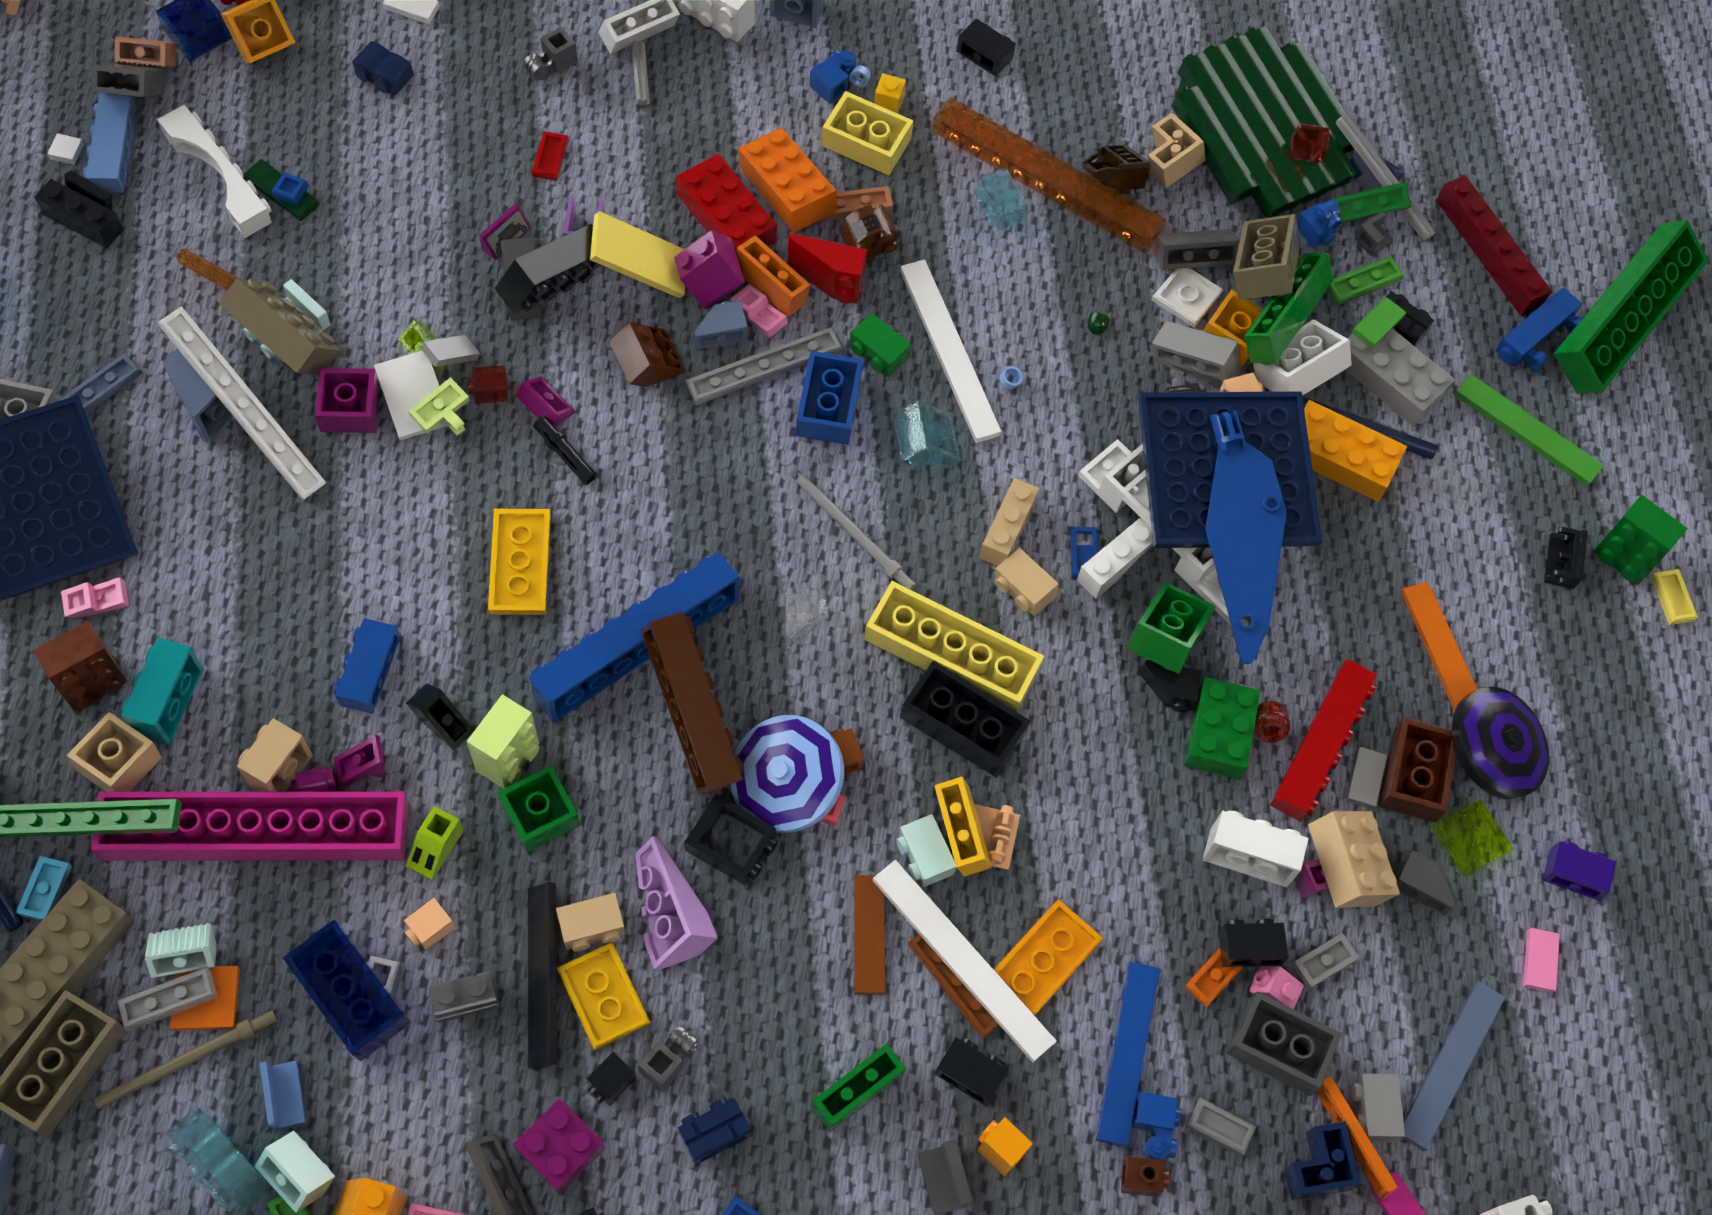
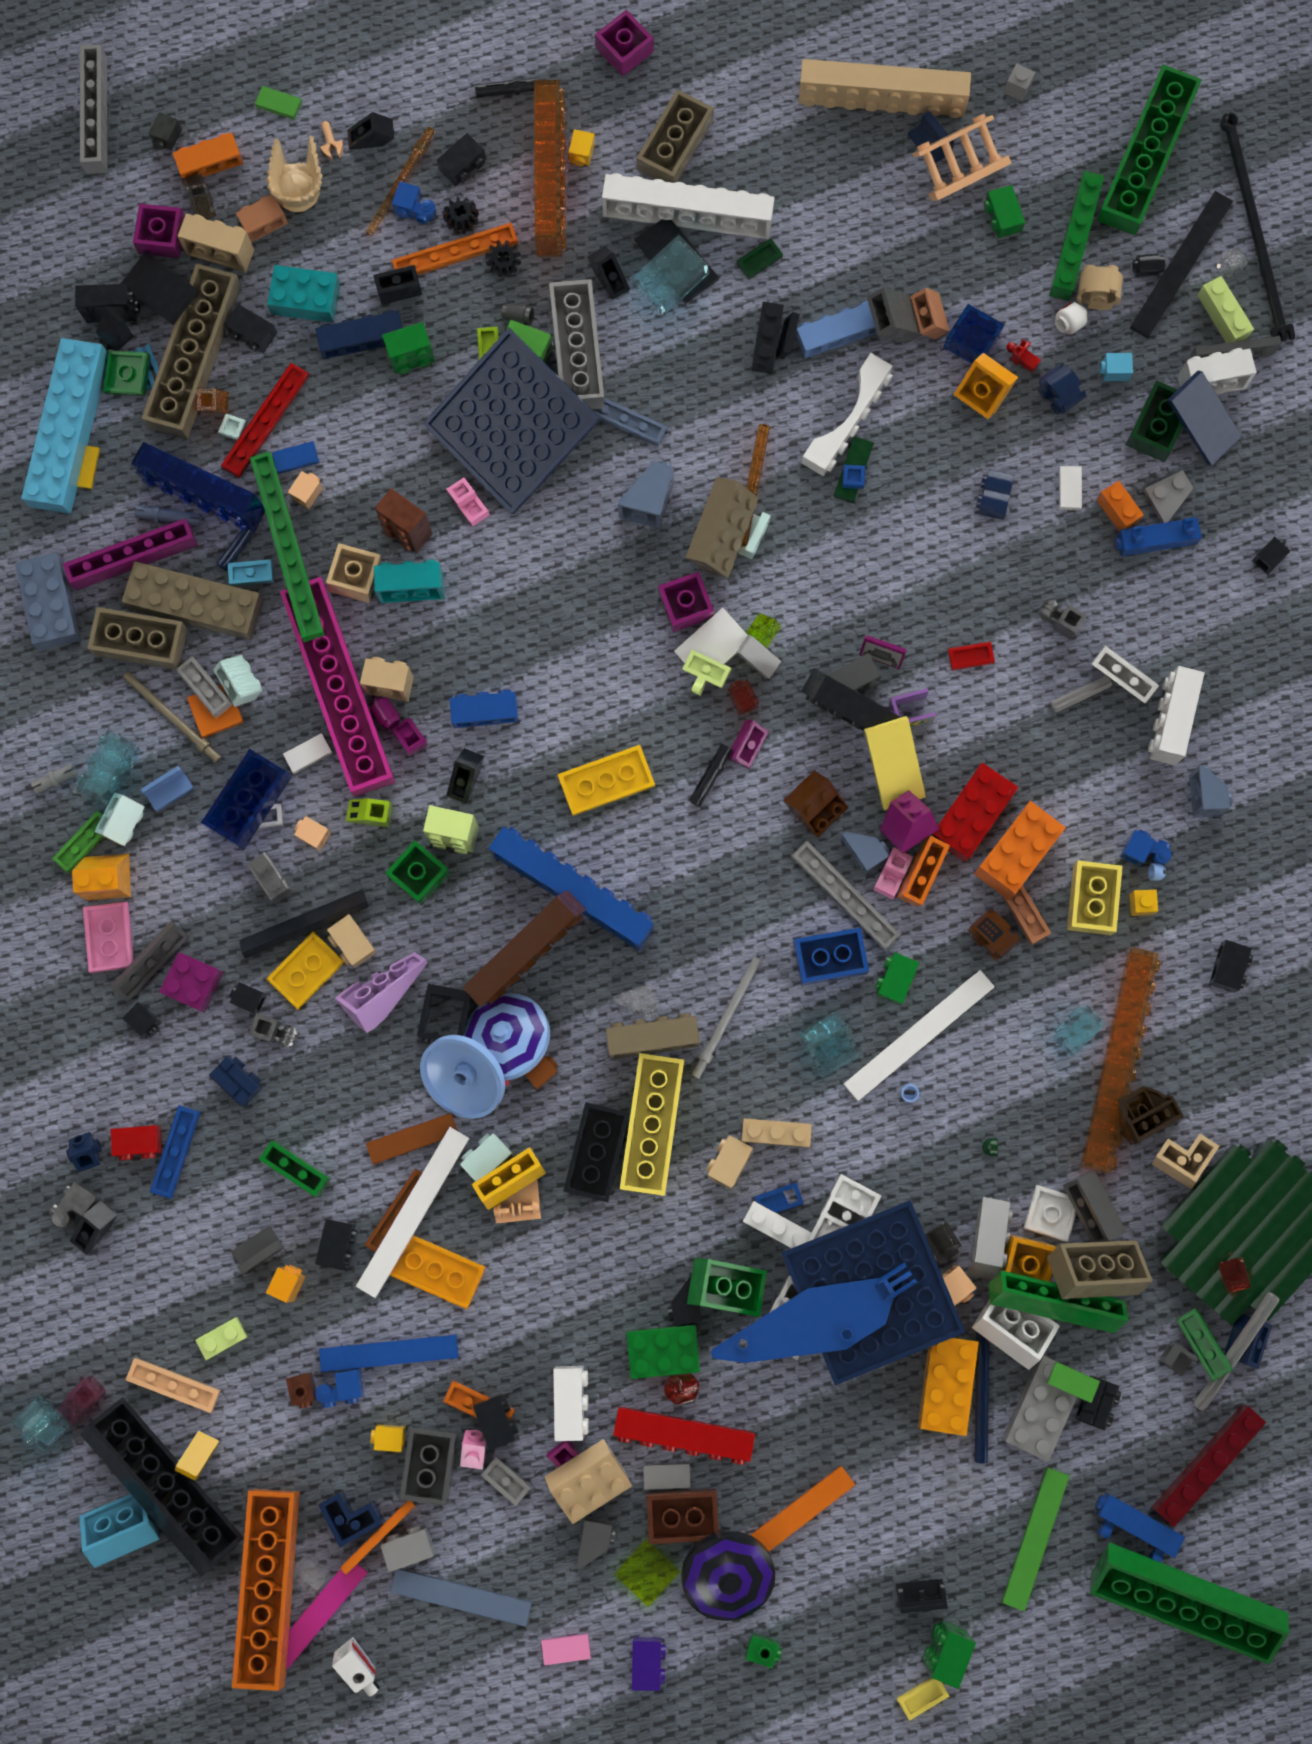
camera: 80 degrees right, 15 degrees up
(65, 149) = (824, 298): white tile -> none
(241, 403) = (644, 531): white tile -> none
(320, 897) = (307, 753): none -> white tile
(818, 835) = (462, 1076): none -> light blue dish
(829, 266) = (948, 921): red slope -> none
(849, 608) = (653, 1036): none -> dark tan brick
(1221, 1126) = (358, 1436): light grey tile -> none
(1235, 1085) = (388, 1438): none -> yellow brick
(1320, 223) = (1165, 1306): blue brick -> none
(1365, 280) = (1129, 1361): bright green tile -> none
(1590, 739) = (763, 1650): none -> green brick

